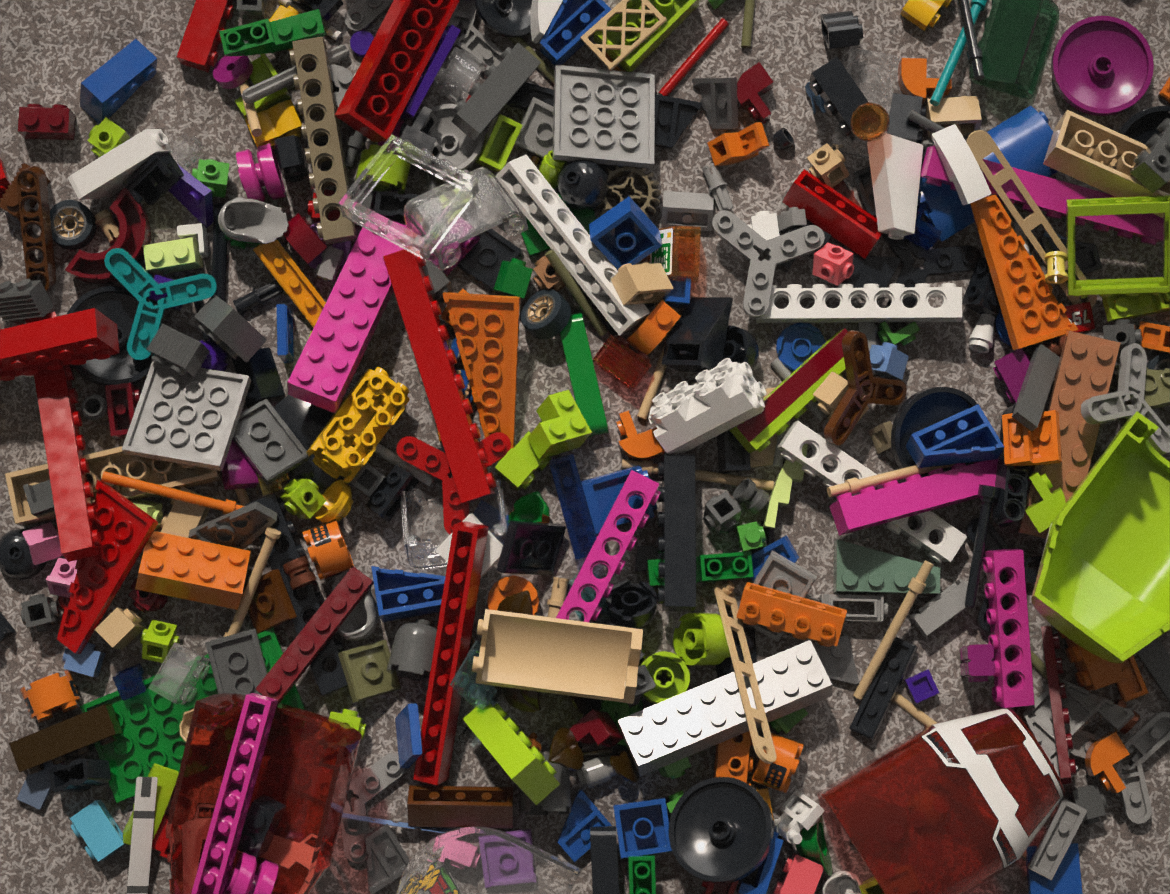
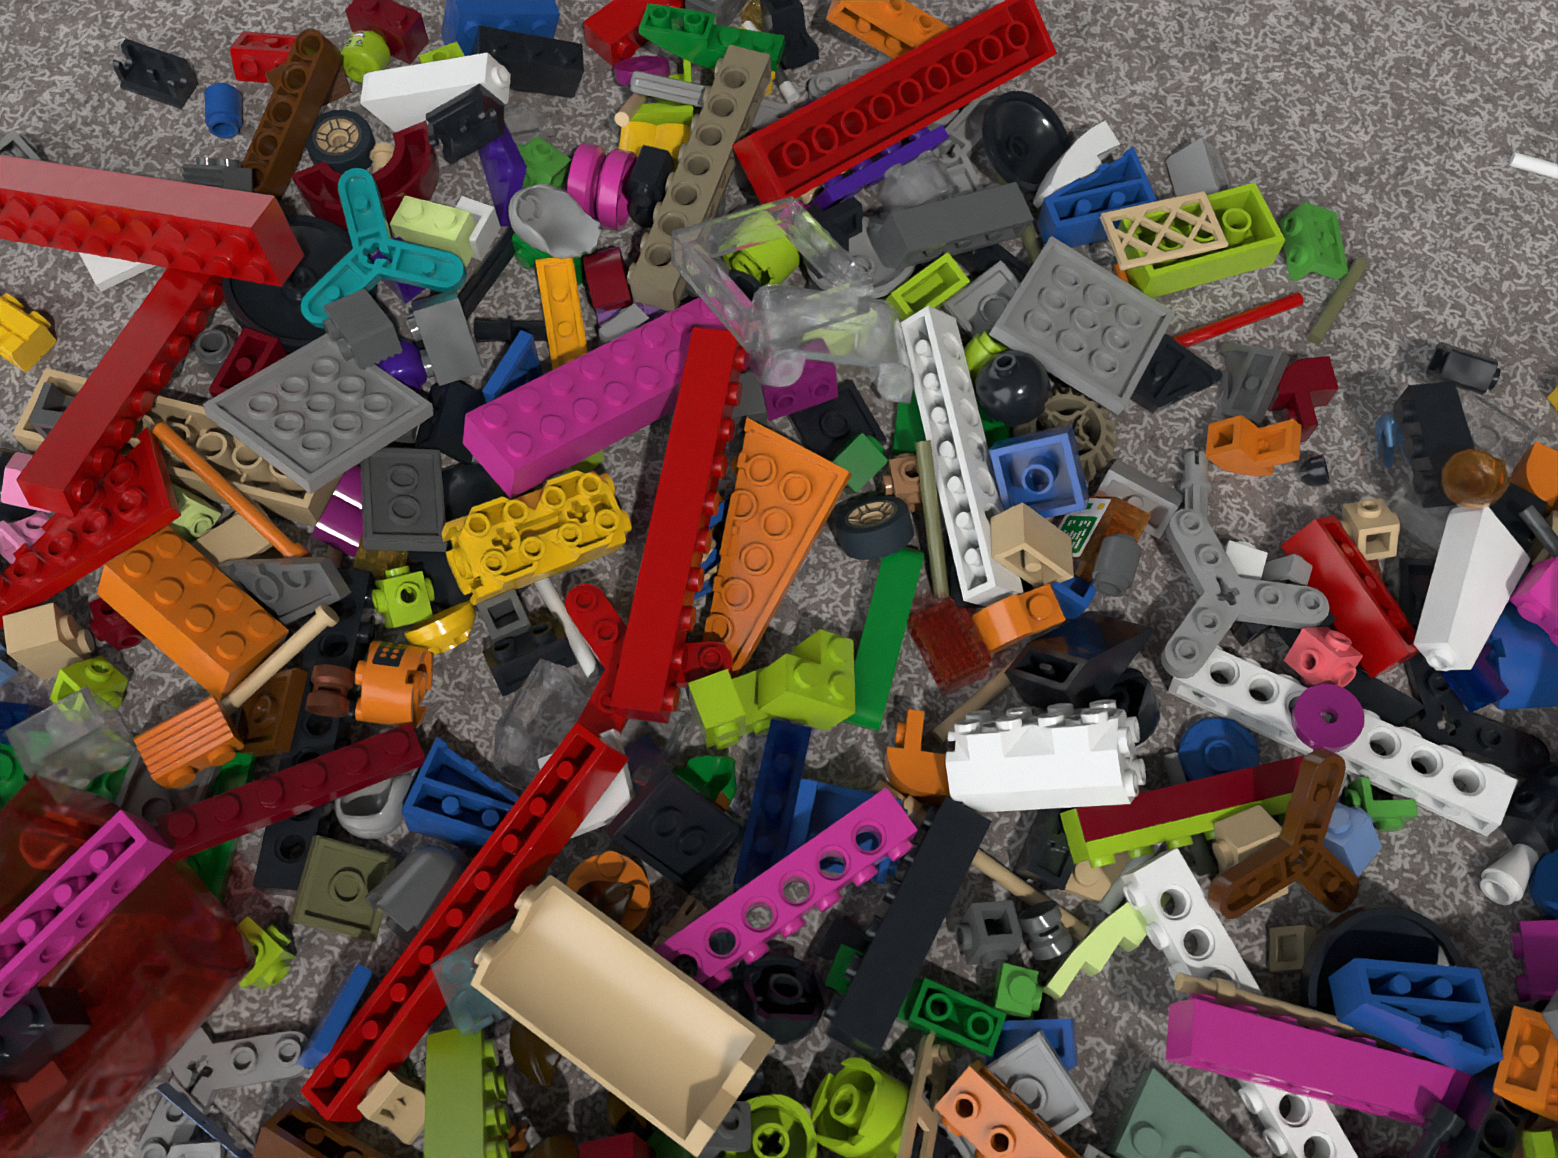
camera: 25 degrees right, 15 degrees down
(47, 154) = (364, 54): none -> lime head
(160, 107) = (534, 61): none -> black brick
(241, 641) = (189, 743): none -> orange brick
(466, 760) = (397, 1105): none -> tan bracket
(694, 272) = (1116, 564): none -> dark grey brick
(851, 313) = (1338, 703): none -> magenta piece

